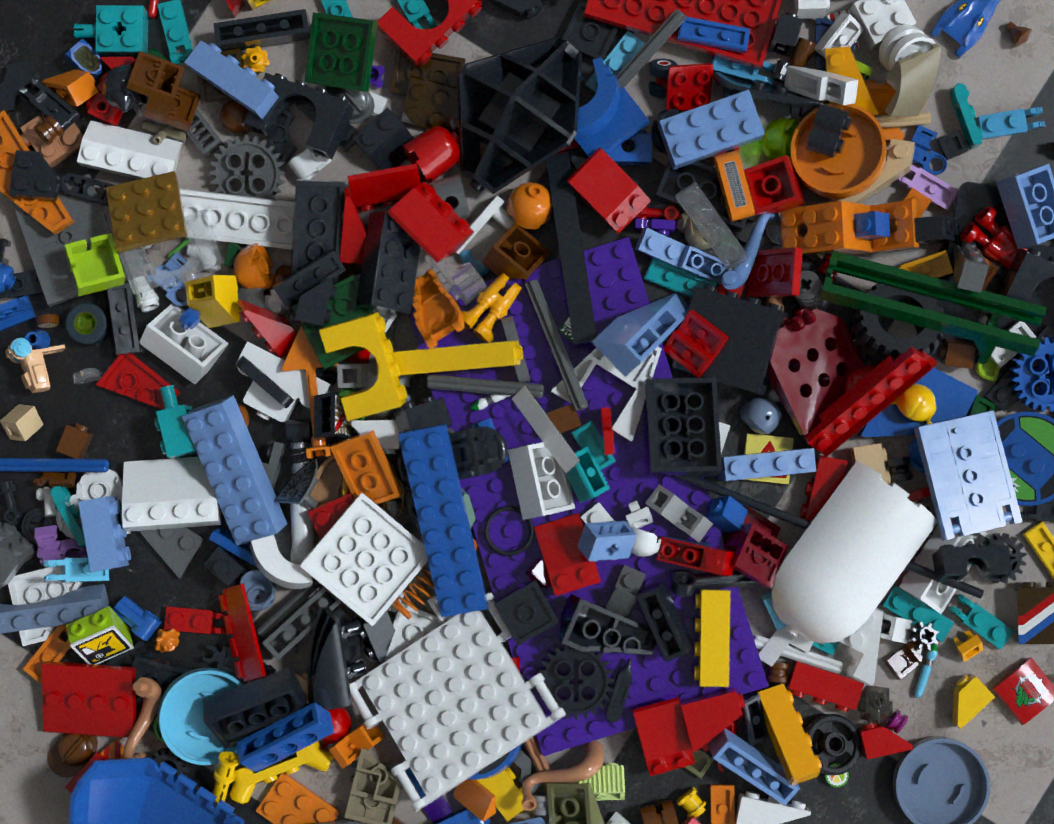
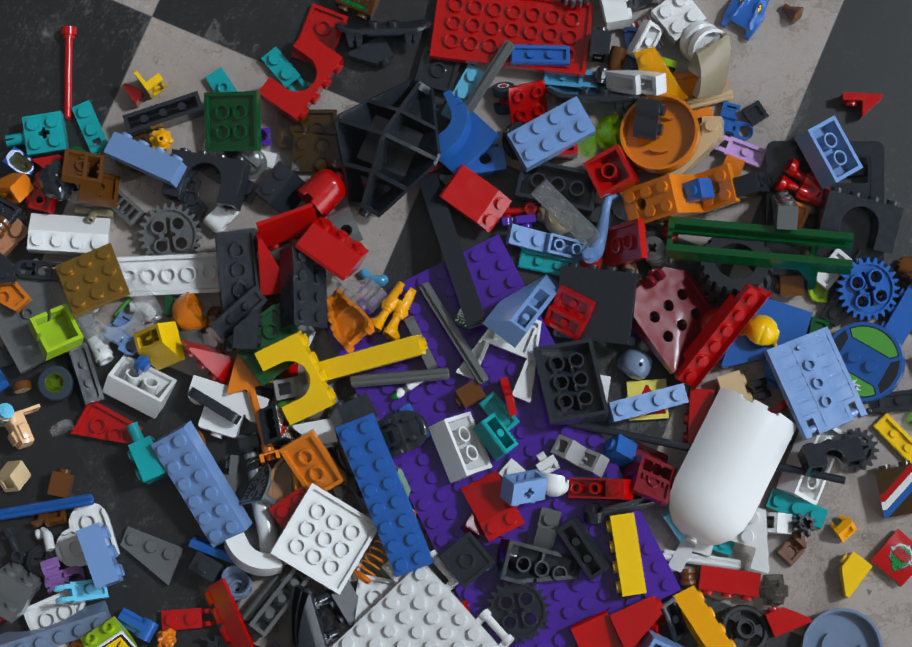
camera: 10 degrees left, 5 degrees down
(42, 340) = (20, 402): blue cone -> none
(69, 513) = (68, 545): teal hinge -> none
(167, 495) = (148, 515): white slope -> none
(233, 116) = (150, 190): reddish brown hair -> none
(493, 210) = (386, 233): white piece -> none
(496, 549) = (437, 513): black tyre -> none
(516, 254) = (407, 264): reddish brown slope -> none
(530, 205) = (412, 222): orange cylinder -> none
(545, 429) = (456, 404): white sticker -> none
(619, 693) = (557, 615): black piece -> none
(734, 185) = (578, 176): orange beam -> none
(897, 721) = (795, 601): magenta bush -> none
(925, 671) = (812, 555): medium azure piece -> none
(933, 265) = (755, 215): light orange hinge -> none
(965, 114) = (761, 86): teal hinge -> none
(983, 623) = (852, 506): teal hinge -> none
(1008, 123) = (798, 87): dark azure hinge -> none

